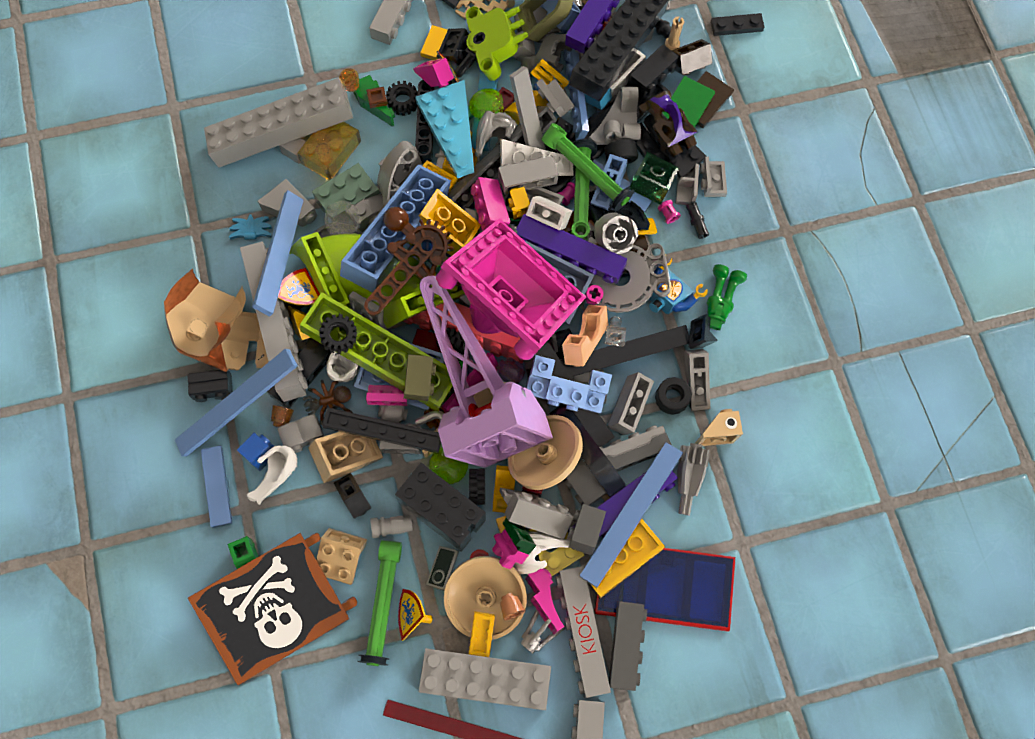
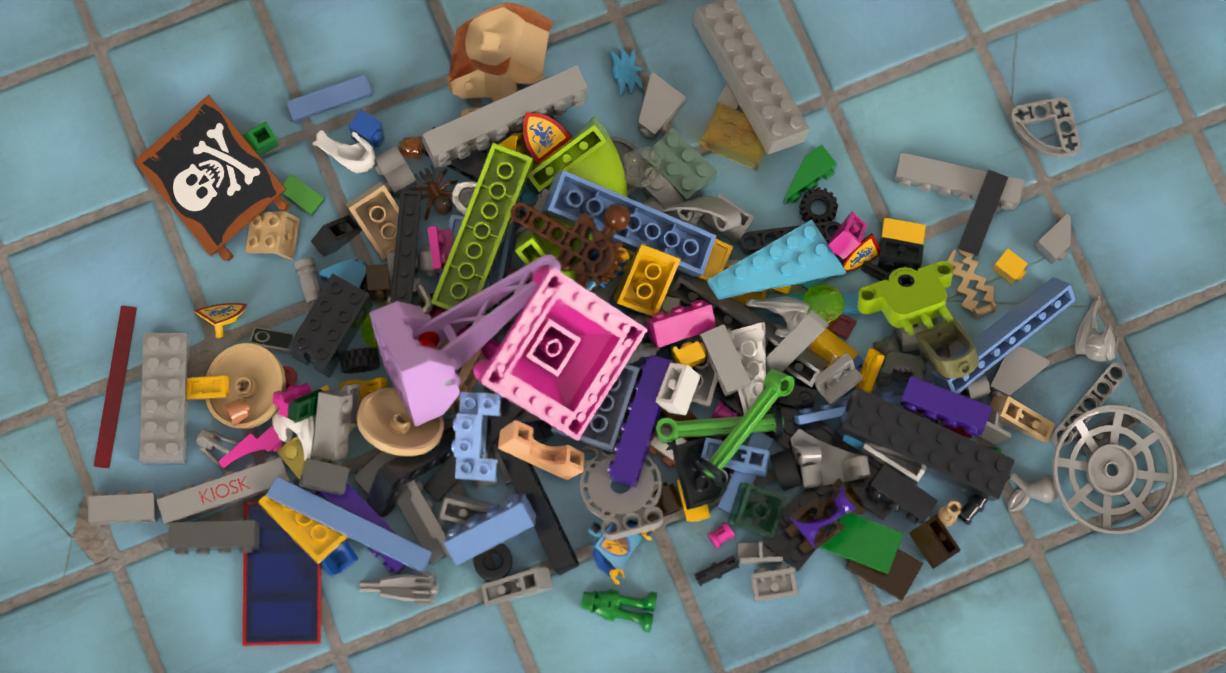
camera: 80 degrees right, 5 degrees up
(209, 384) = (435, 67): black brick -> none
(236, 402) = (409, 98): medium blue tile -> none
(278, 254) = (580, 105): medium blue tile -> none
(306, 522) = (302, 195): none -> bright green tile
(338, 346) = (486, 196): black tyre -> none
(349, 79) = (817, 141): clear orange hat -> none
(377, 97) = (805, 177): reddish brown tile -> none
(389, 484) = (349, 270): none -> dark azure slope
(389, 556) = (278, 284): bright green piece -> none
(405, 458) = (378, 282): none -> dark brown brick
(418, 377) = (454, 274): olive brick -> none
(599, 294) = (589, 450): dark pink bush -> none
(609, 239) = (664, 466): light grey brick -> none
(615, 333) = (554, 486): clear bracket -> none
(654, 384) = (490, 528): none -> medium blue brick
(660, 527) = (339, 559): none -> blue bracket
(700, 333) = (568, 582): black slope -> none
(722, 430) = (458, 613): tan slope -> none
(737, 24) = (1001, 598): black plate -> none

